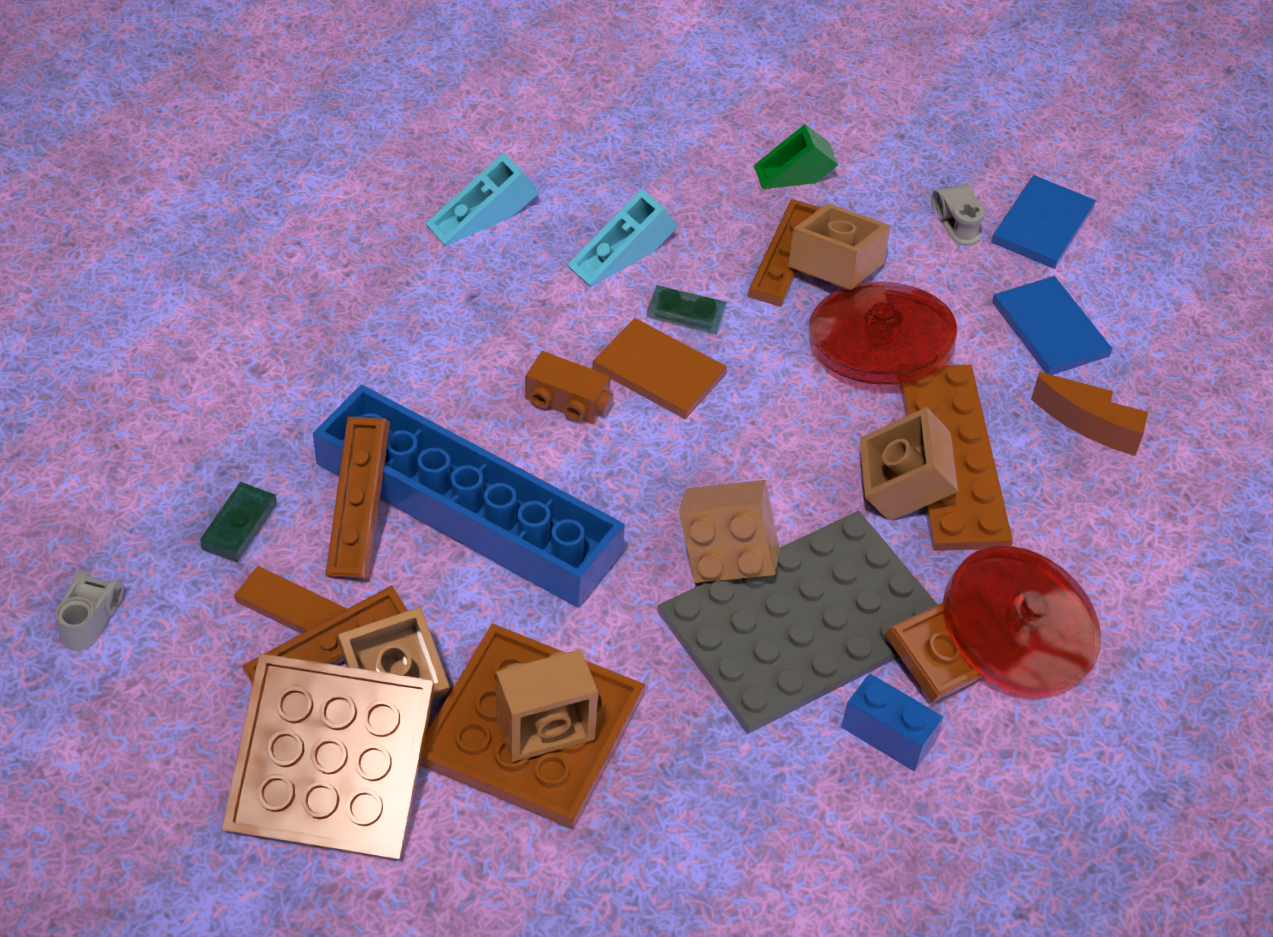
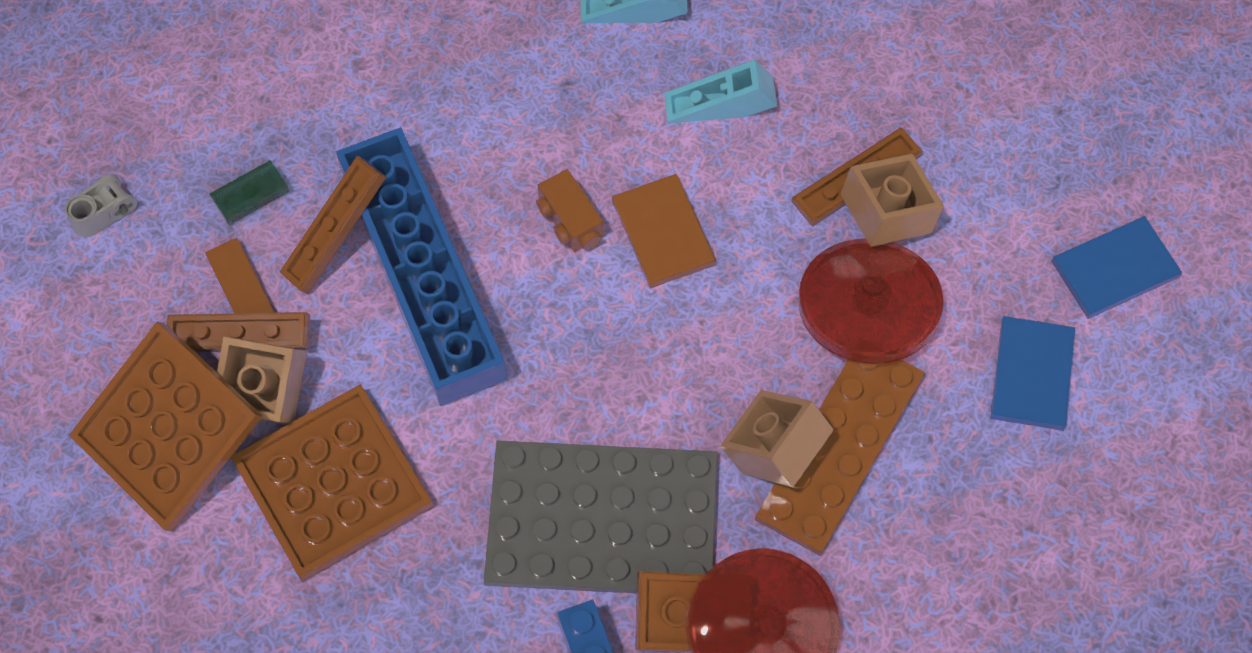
camera: 40 degrees right, 15 degrees up
(546, 704) = (327, 479): medium nougat brick -> none
(686, 309) = (728, 188): plate -> none
(730, 531) = (579, 416): medium nougat brick -> none
(797, 160) = (934, 92): green slope -> none
(959, 213) = (1040, 217): light grey piece -> none
(1090, 412) = (989, 478): dark orange slope -> none

